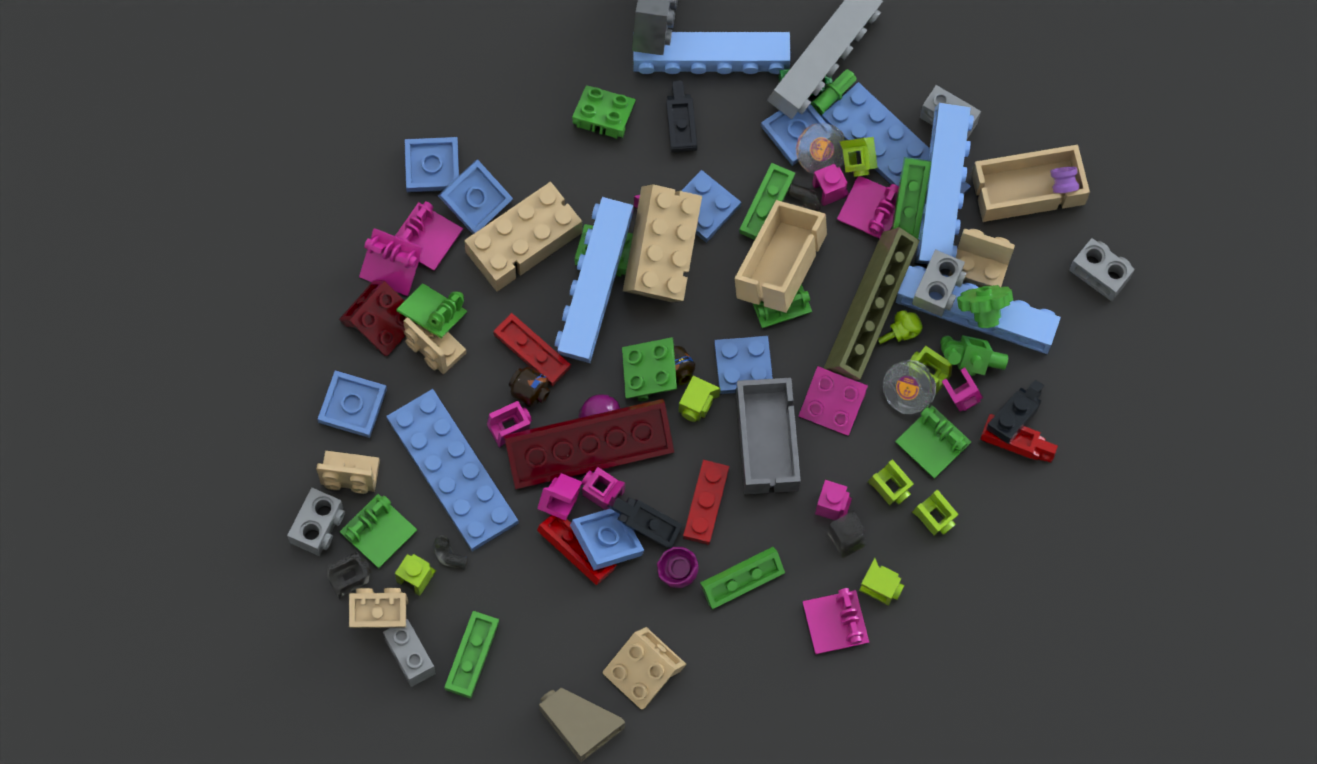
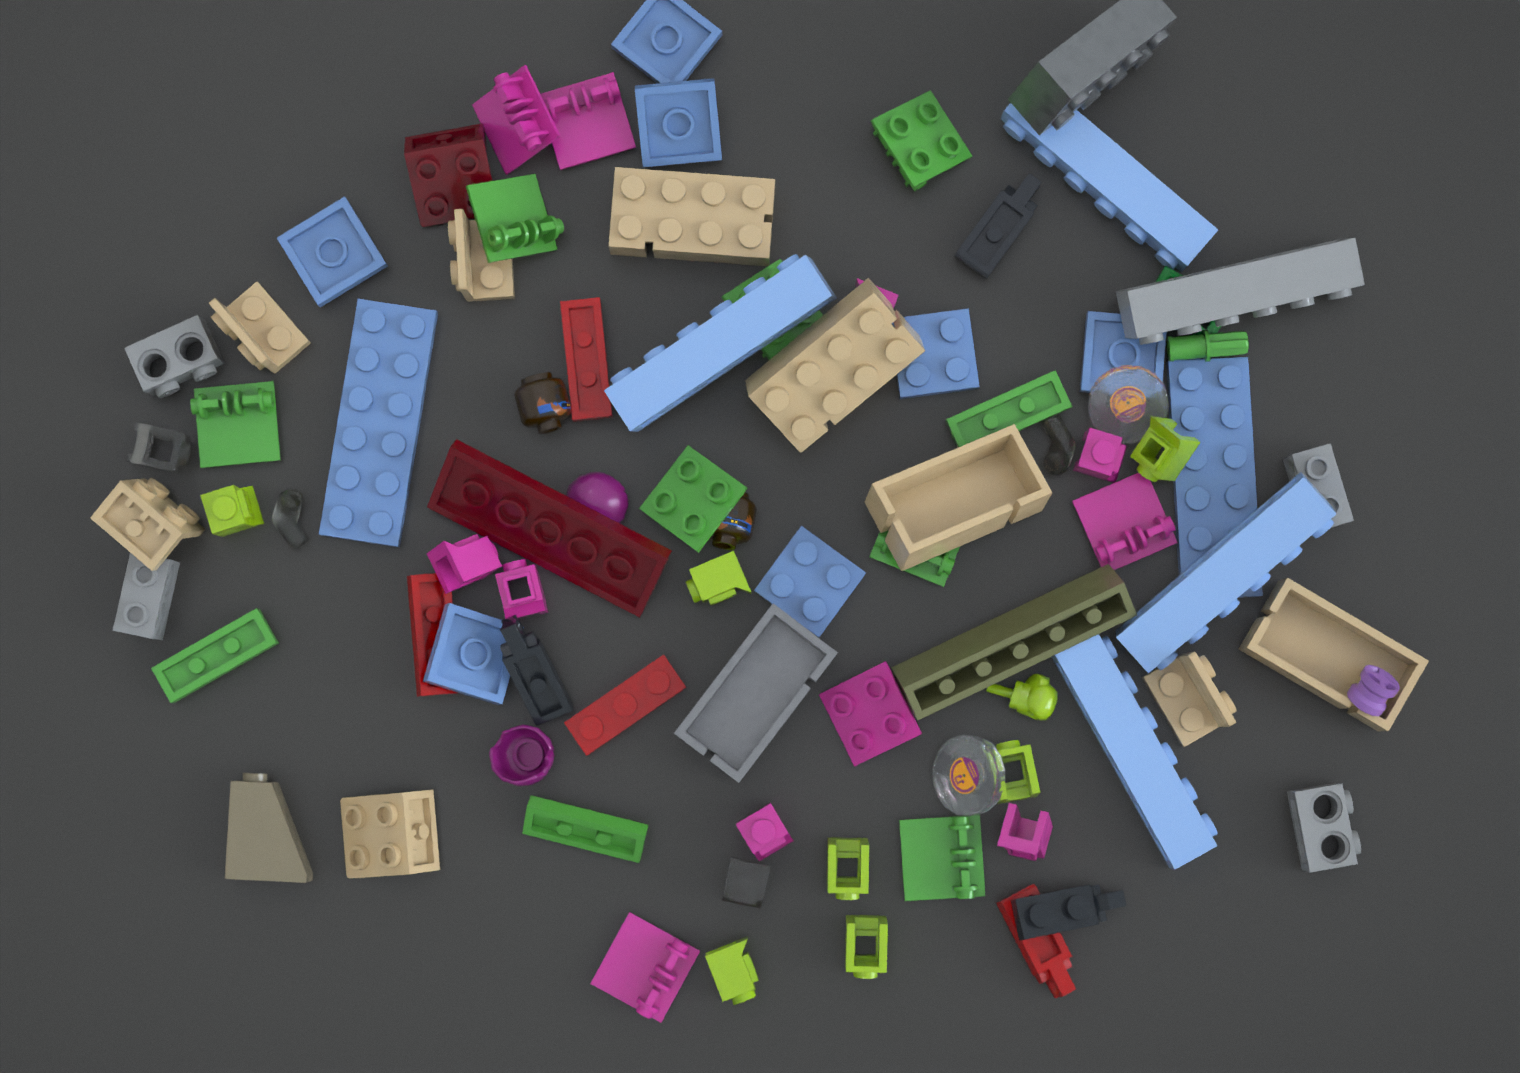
camera: 45 degrees right, 15 degrees up
(512, 411) = (469, 419): dark pink window -> none
(911, 195) = (1175, 554): bright green plate -> none
(935, 282) = (1105, 680): light grey brick -> none
(972, 354) = (1074, 798): bright green piece -> none
(985, 303) = (1139, 760): bright green plant -> none

